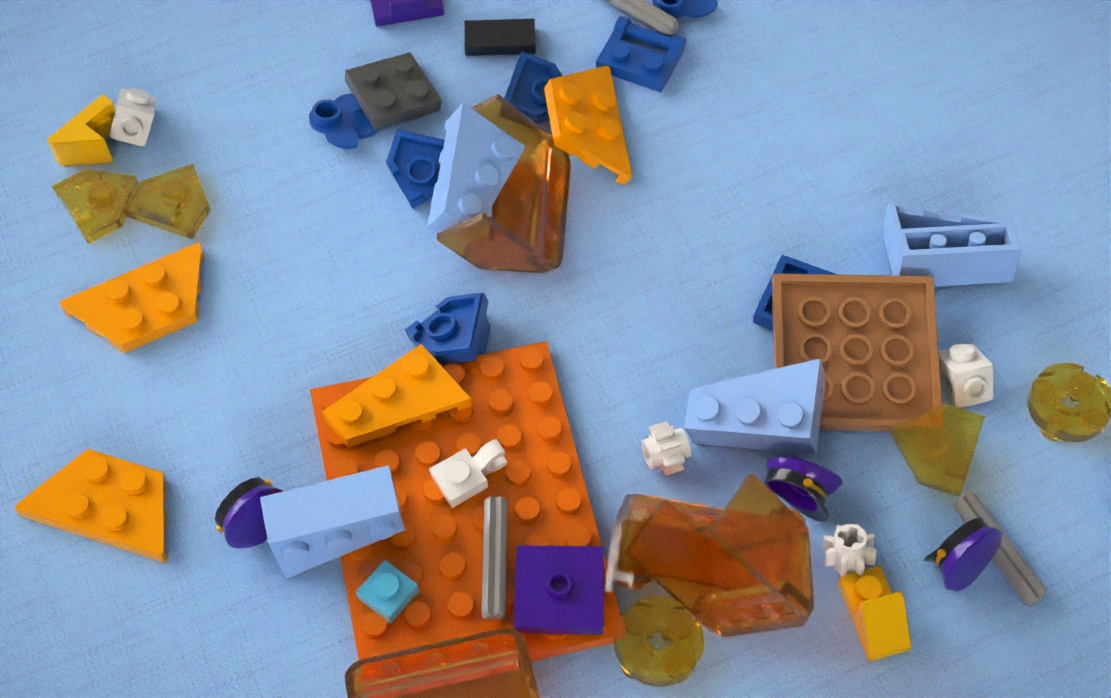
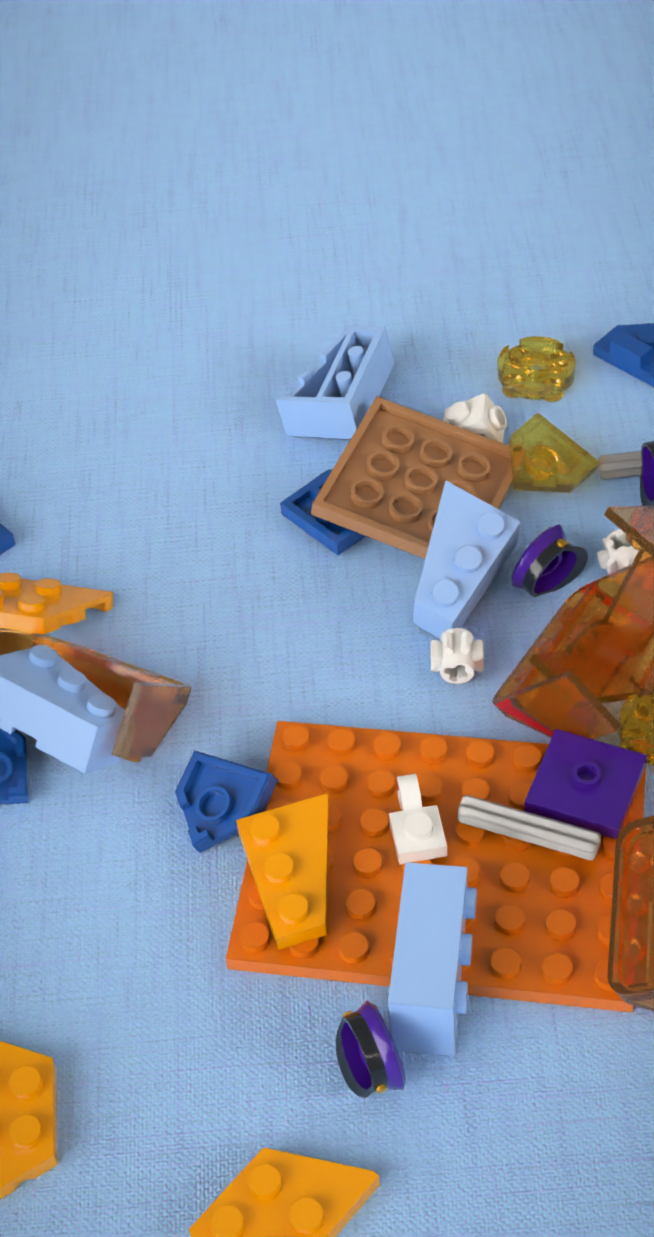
camera: 65 degrees left, 10 degrees down
(387, 591) = (529, 937): medium azure plate -> none

